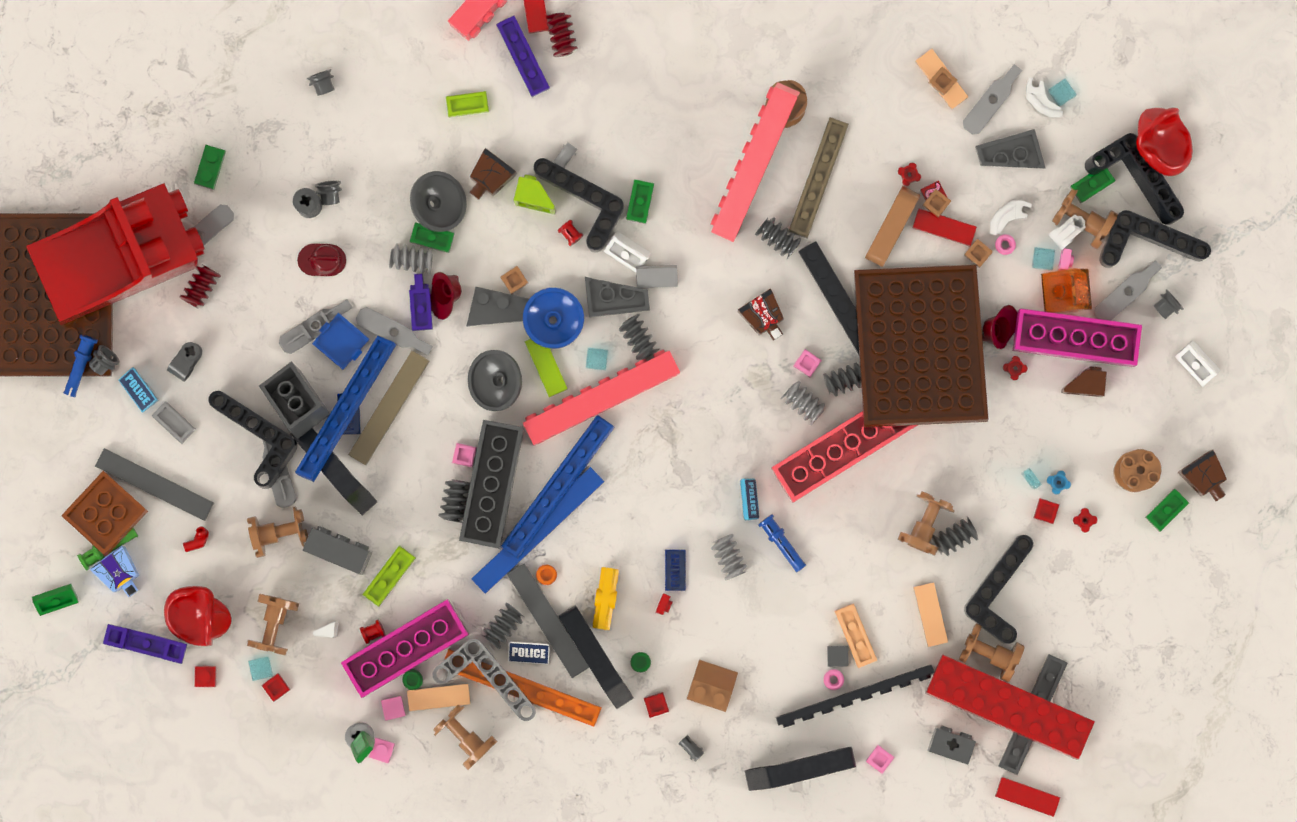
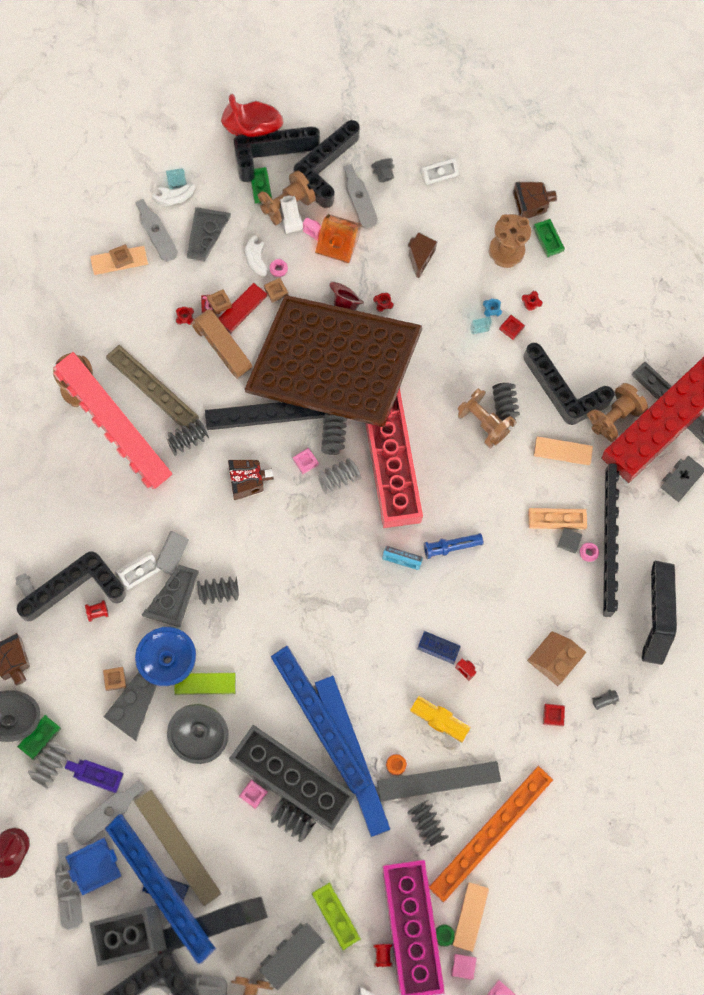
camera: 75 degrees left, 15 degrees down
(444, 293) = (96, 748): dark red piece -> none
(470, 742) = (528, 902): medium nougat piece -> none
(490, 674) = (469, 855): light grey beam -> none
(528, 653) = (461, 811): slope -> none
(532, 195) = (47, 626): lime slope -> none
(595, 657) = (510, 743): black beam -> none
(596, 359) = (220, 636): clear light blue tile -> none
(601, 398) = (256, 647): coral brick -> none
(640, 201) = (99, 539): green plate -> none
(640, 662) = (510, 712): green plate -> none
(728, 556) = (447, 593): light grey piece -> none
(880, 759) = (672, 543): bright pink tile -> none
(1043, 258) = (303, 245): clear light blue tile -> none
(1077, 337) = (380, 243): dark pink brick -> none

